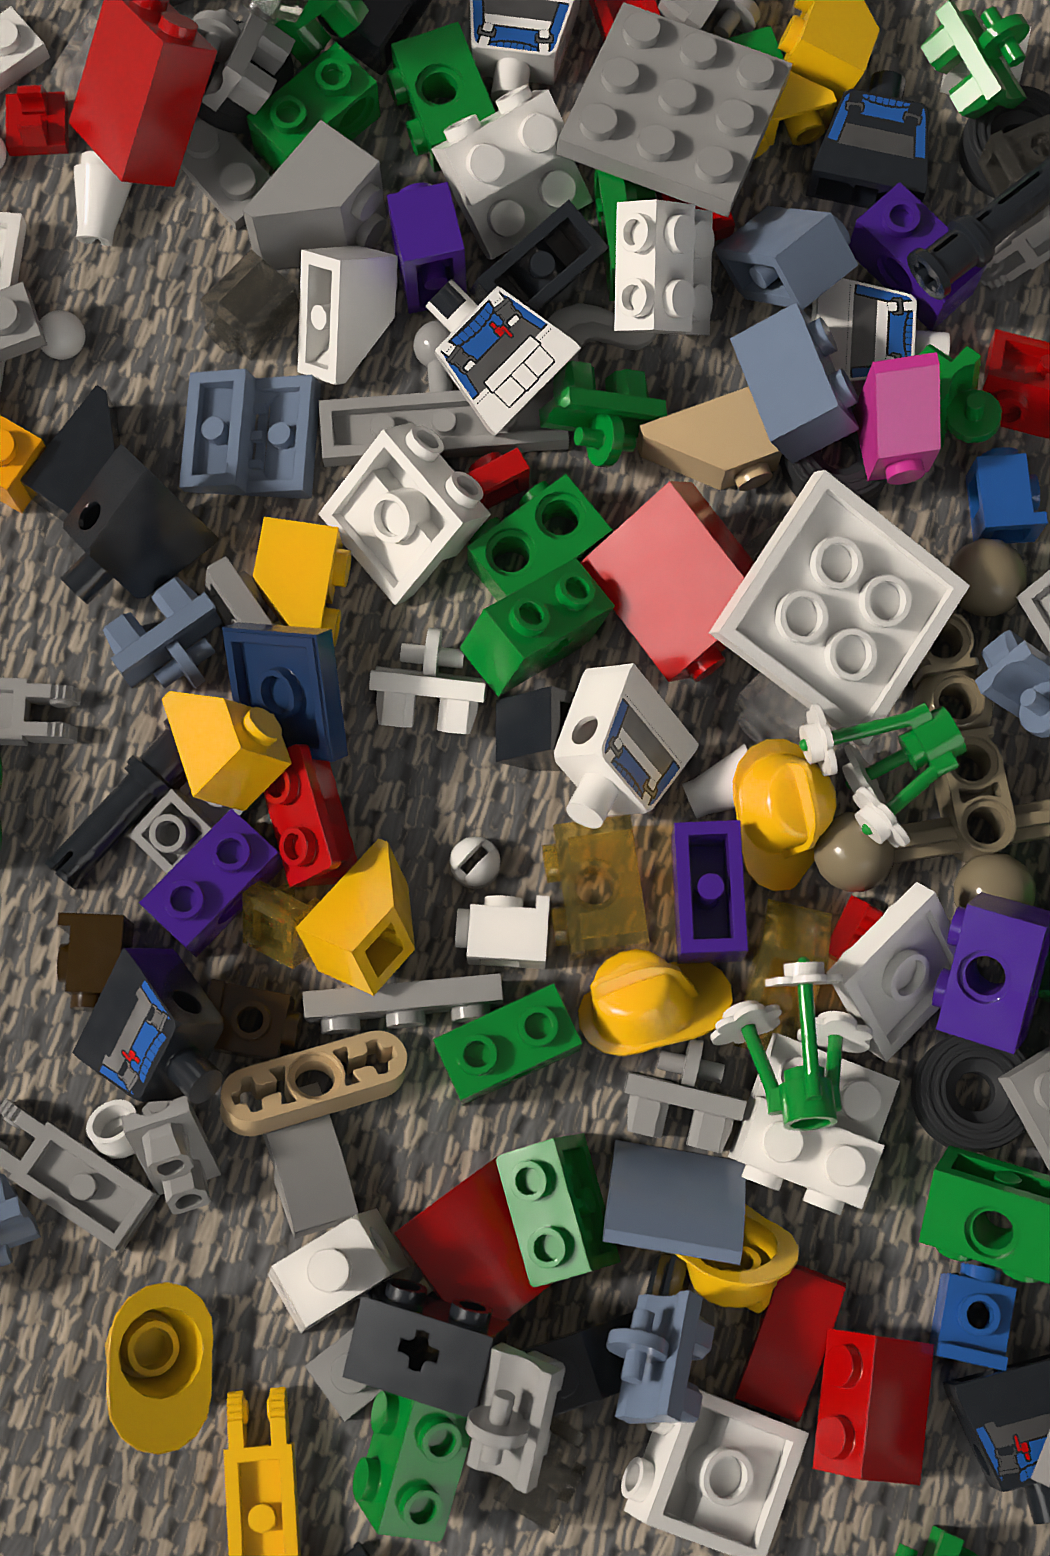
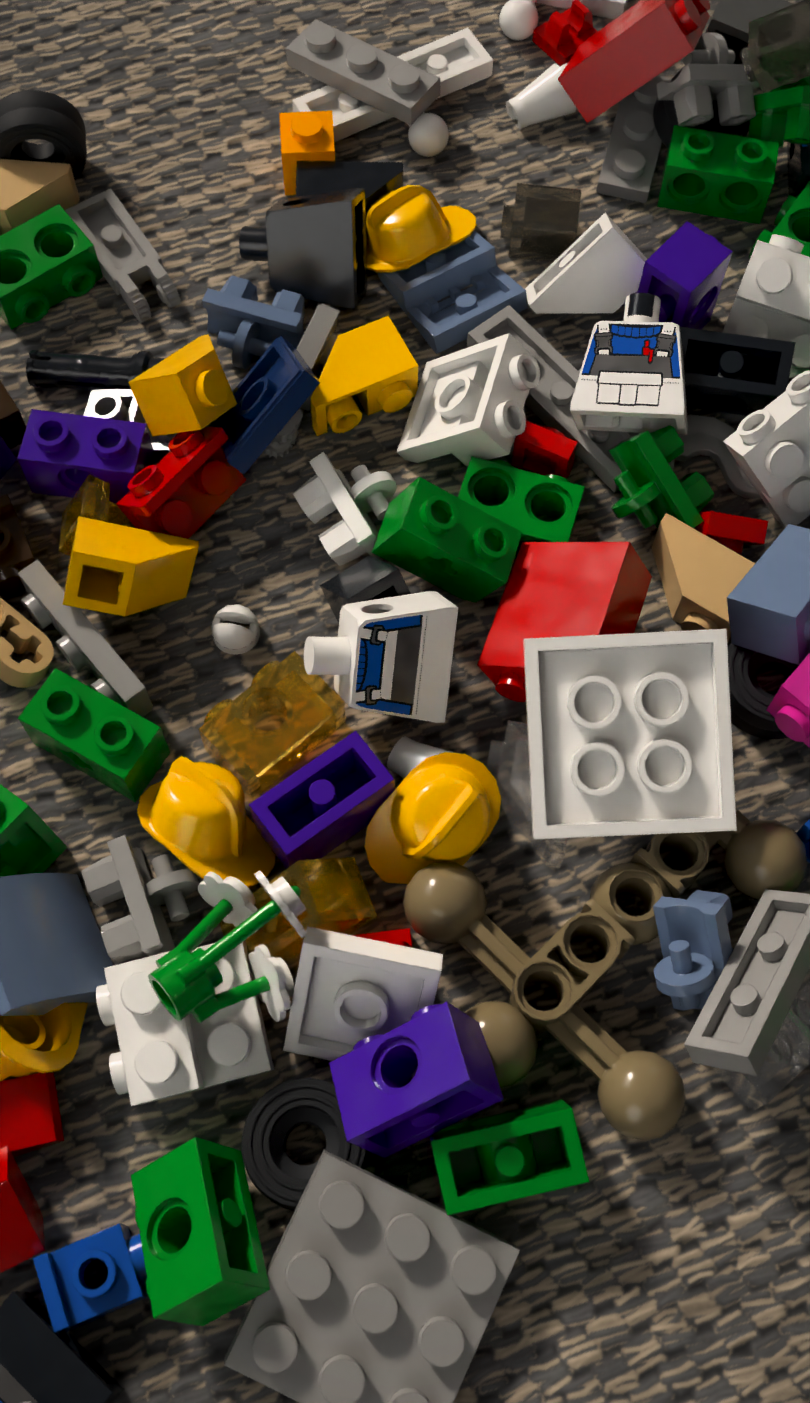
camera: 55 degrees right, 10 degrees down
(171, 423) = (410, 227): none -> yellow piece
(317, 199) = (647, 191): light grey slope -> none
(504, 932) = (188, 679): white brick -> none
(686, 382) = (733, 530): none -> red plate
(929, 741) = (570, 888): plant -> none

